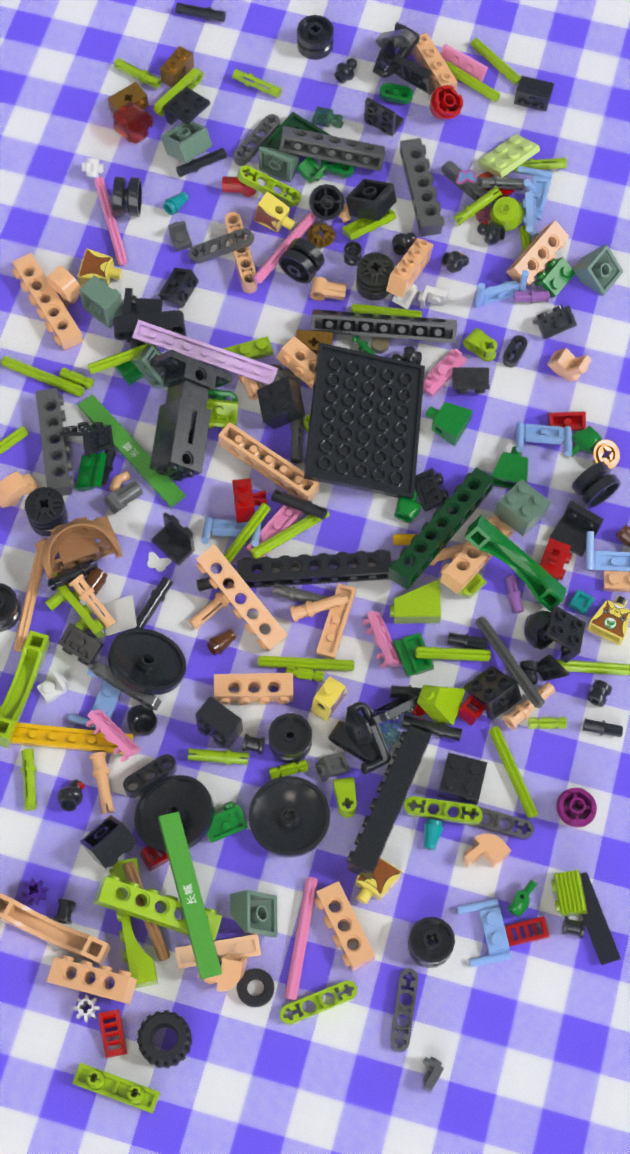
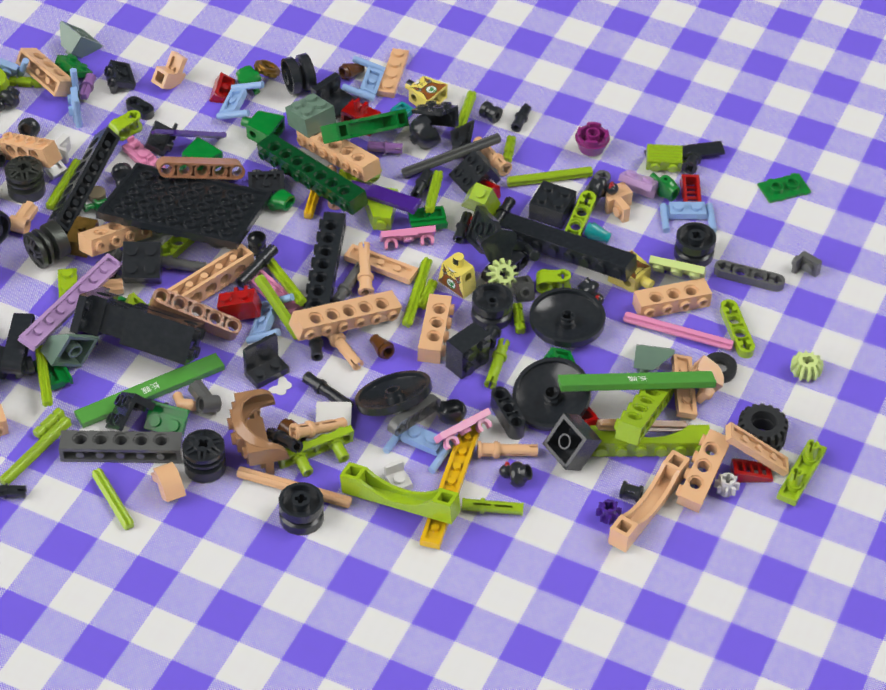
camera: 80 degrees left, 20 degrees down
(81, 644) = (362, 444): black bracket -> none
(121, 1032) = (757, 449): none -> light nougat plate
(210, 455) = (205, 313): none -> nougat beam
(277, 1081) = (806, 366): none -> yellowish green gear
(288, 315) = (47, 244): none -> pearl dark grey wheel
(329, 739) = (506, 268): none -> yellowish green gear
(336, 834) = (592, 288): none -> black animal
(338, 495) = (256, 242): none -> black wheel
(387, 925) = (677, 268): none -> yellowish green plate
(423, 606) = (390, 197): none -> dark purple piece
(424, 423) = (194, 162): none -> nougat beam
(474, 403) = (187, 133): none -> dark purple piece
(492, 825) = (601, 185): none -> black animal
(516, 867) = (639, 184): none -> lavender bracket
(564, 1042) = (784, 188): none -> green piece

